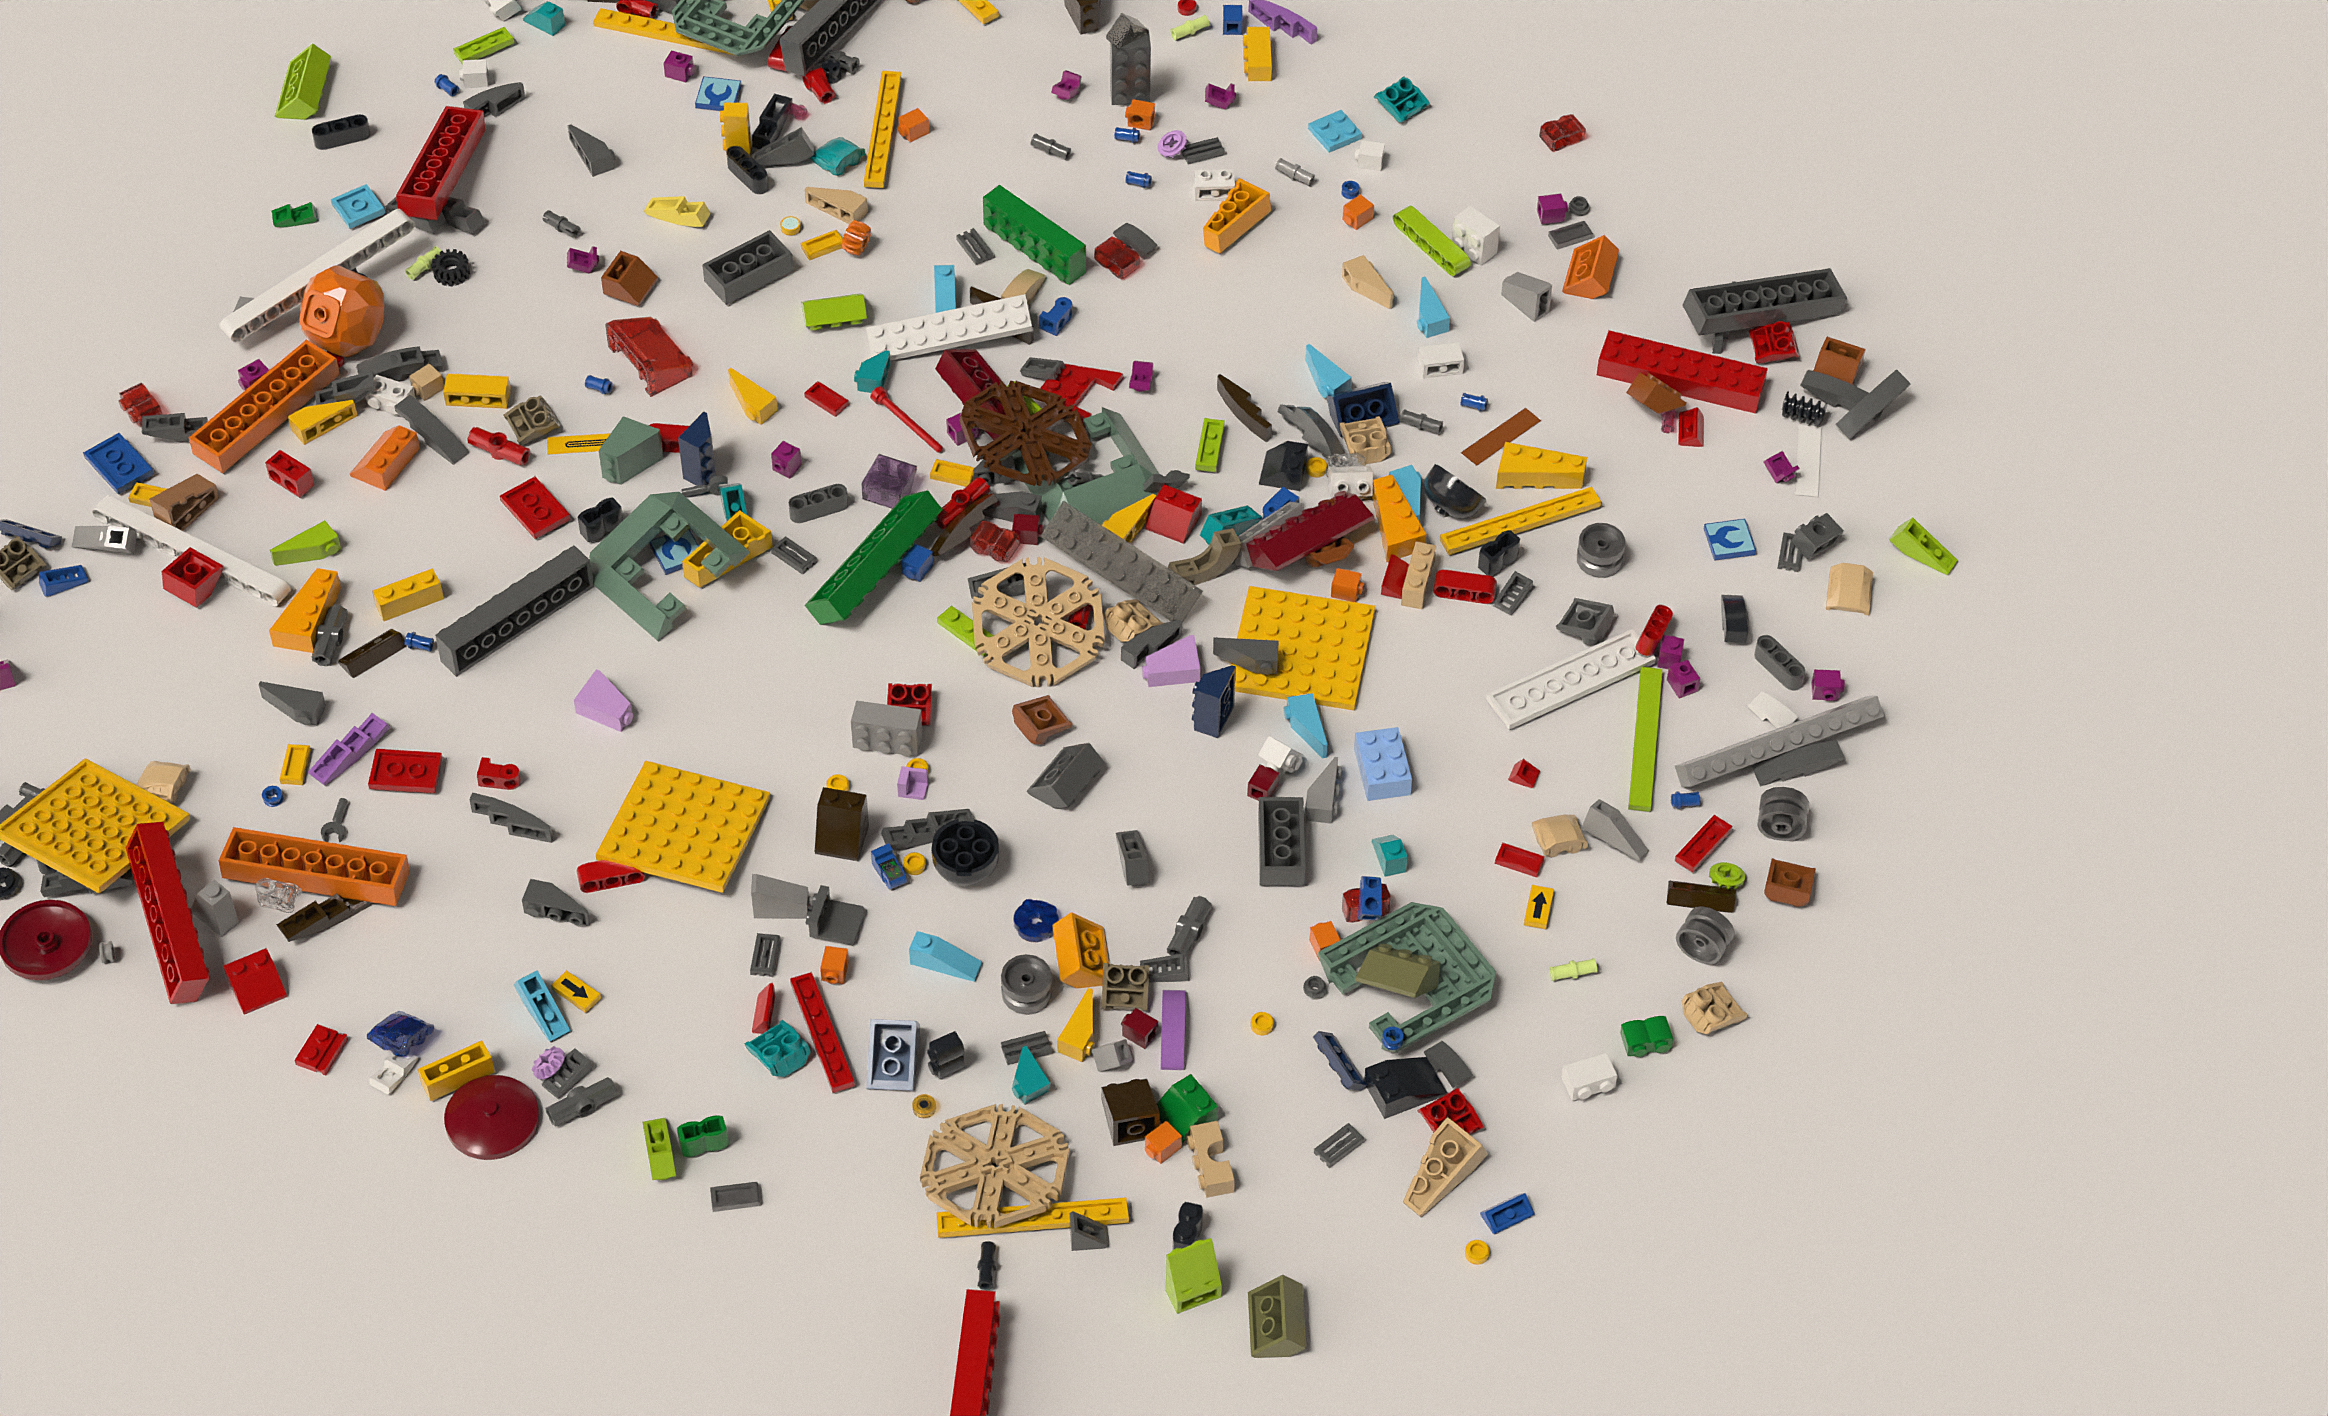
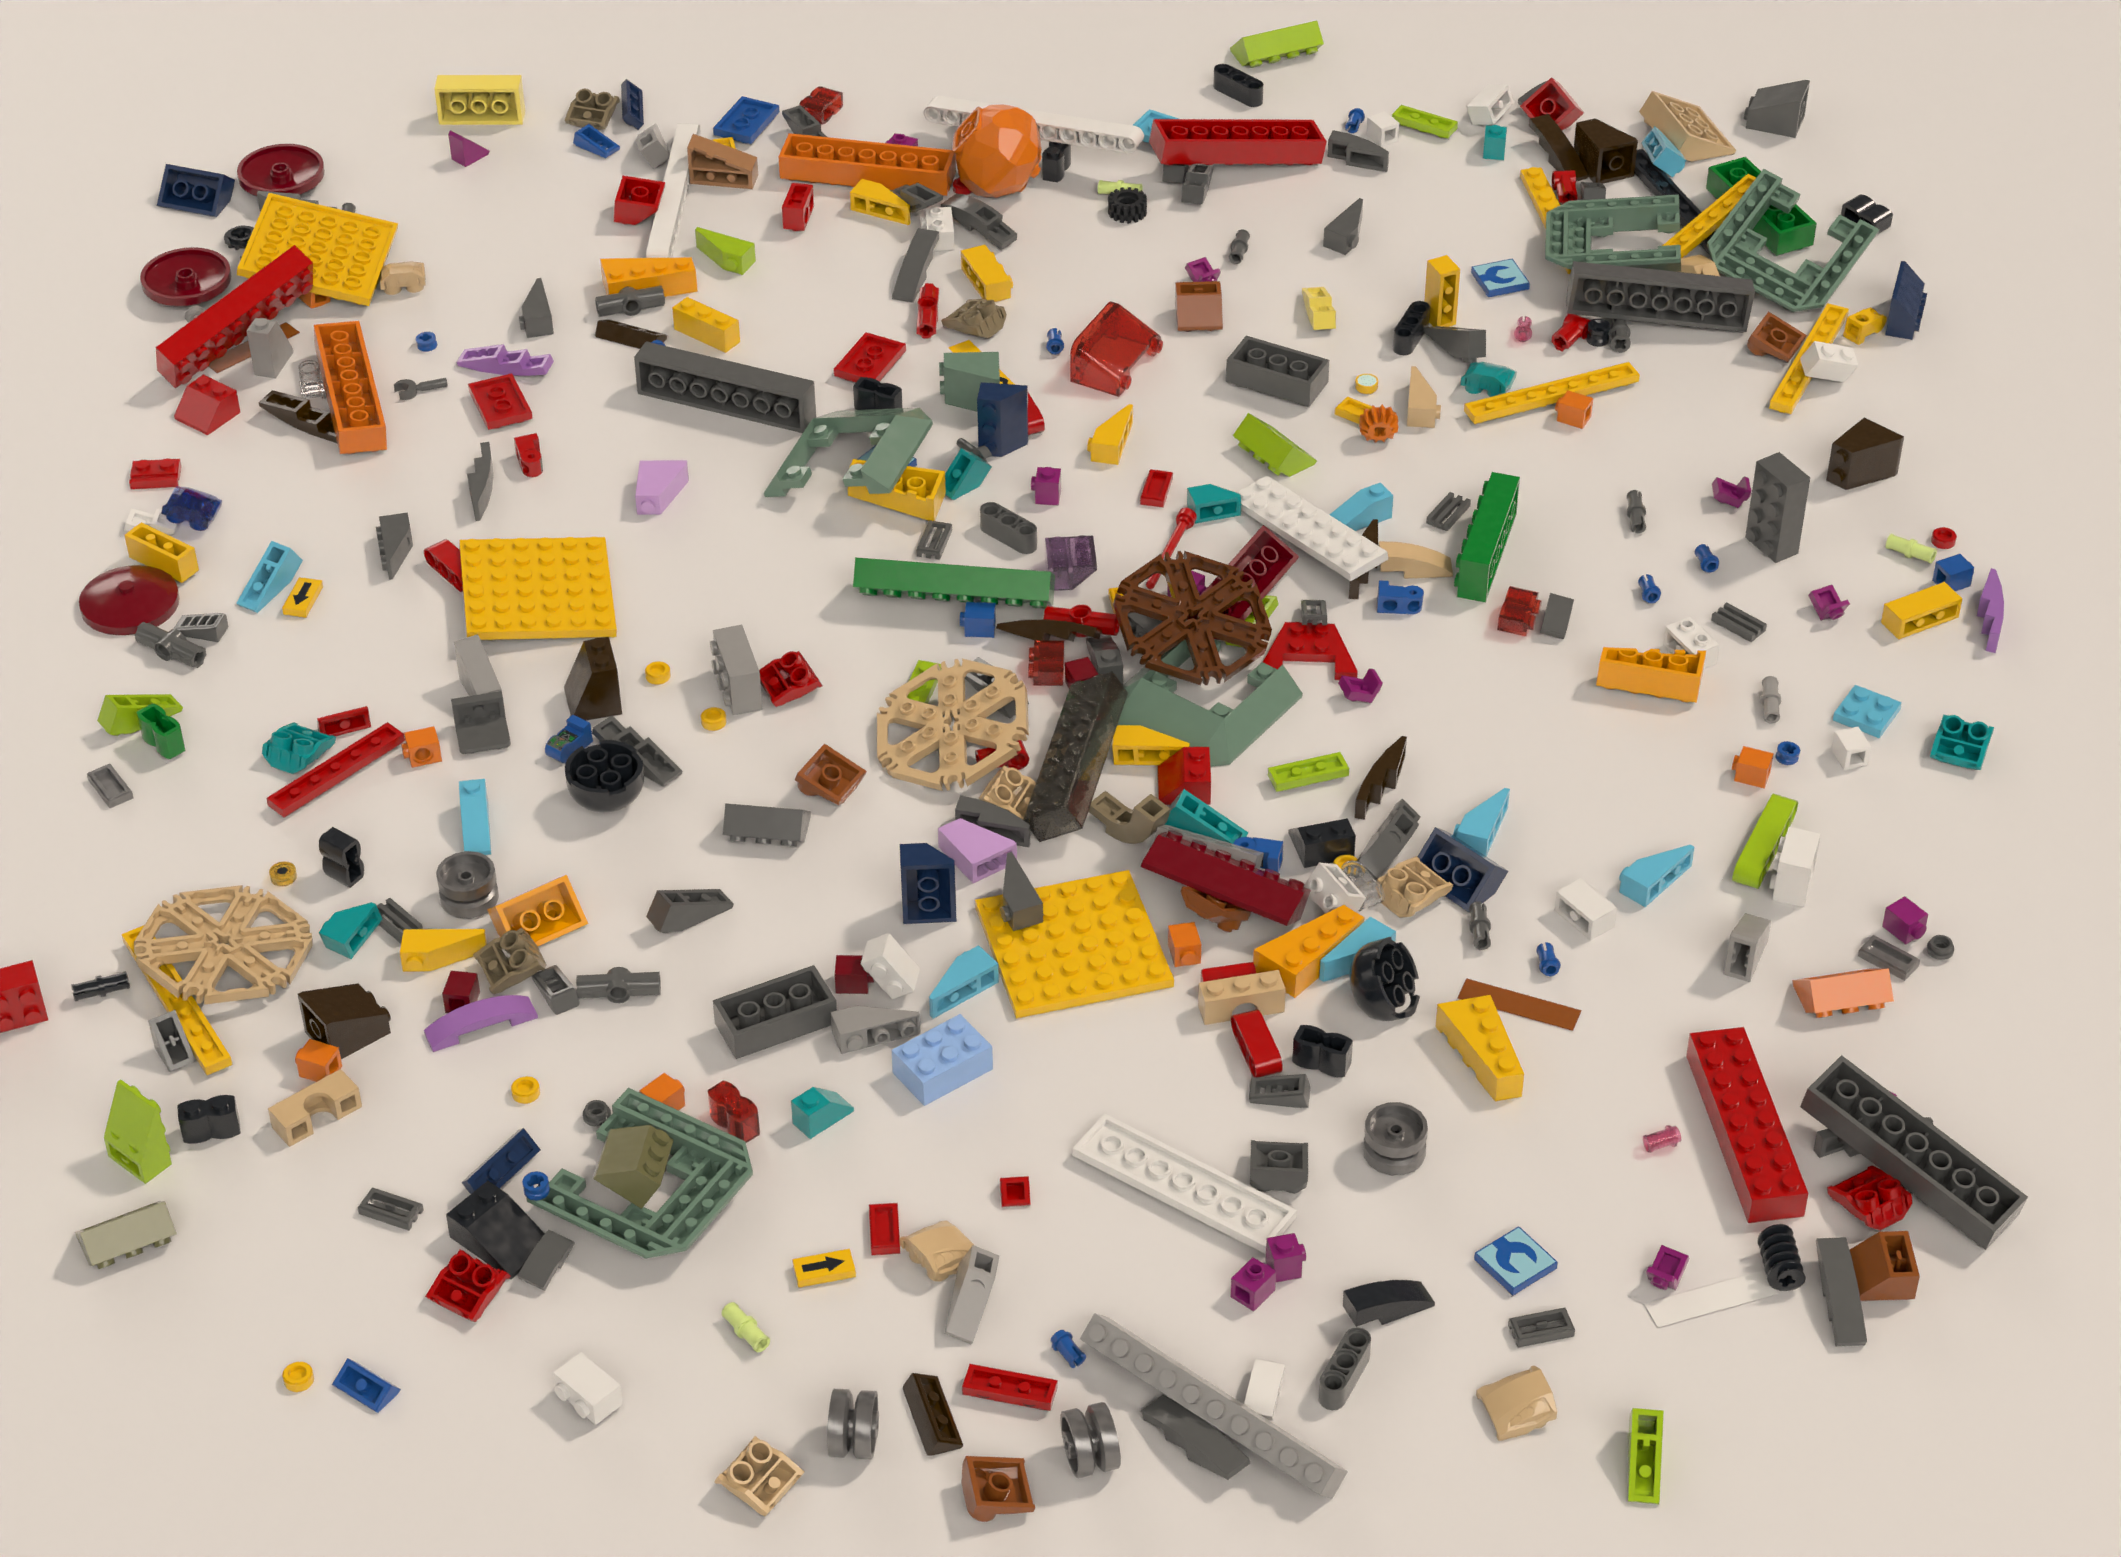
camera: 65 degrees right, 10 degrees down
(289, 217) = (1115, 100): green slope -> none
(295, 764) = (471, 339): yellow tile -> none
(387, 457) = (864, 256): orange slope -> none
(426, 382) = (971, 237): tan brick -> none
(541, 1069) = (203, 606): lavender gear -> none
(679, 66) = (1509, 238): magenta brick -> none
(763, 970) = (415, 700): dark grey tile -> none
(771, 121) = (1492, 317): black slope -> none
(892, 1054) = (343, 810): sand blue slope -> none
(912, 783) = (687, 718): lavender panel -> none
(1035, 909) = (574, 860): clear blue plate -> none
(1081, 478) = (1169, 683): dark grey pin -> none
(1112, 1055) = (415, 984): light grey panel -> none
(1125, 31) = (1789, 458): clear smoke slope -> none
(1140, 114) = (1743, 557): orange brick -> none
(1167, 141) = (1721, 593): lavender gear -> none
(1173, 479) = (1227, 756): dark grey slope -> none
(1186, 1106) = (378, 1065): green slope -> none
(1363, 279) = (1658, 802): tan slope -> none
(1370, 899) = (717, 1096): blue leg -> none
(1446, 1163) = (404, 1305): tan wedge -> none
(1520, 520) = (1398, 1060): yellow plate -> none
(1562, 132) = (2042, 892): clear red brick -> none
(1645, 739) = (1138, 1283): lime tile -> none
(1646, 1036) = (681, 1426): green brick -> none
(1654, 630) = (1316, 1224): red beam -> none
(1655, 394) = (1680, 1106): dark orange slope -> none
(1691, 428) = (1670, 1168): red slope -> none
(1719, 872) = (984, 1423): lime gear -> none
(1816, 535) = (1583, 1349): dark grey brick -> none
(1827, 685) = (1340, 1427): magenta brick -> none
(1873, 404) = (1840, 1318): dark grey slope -> none

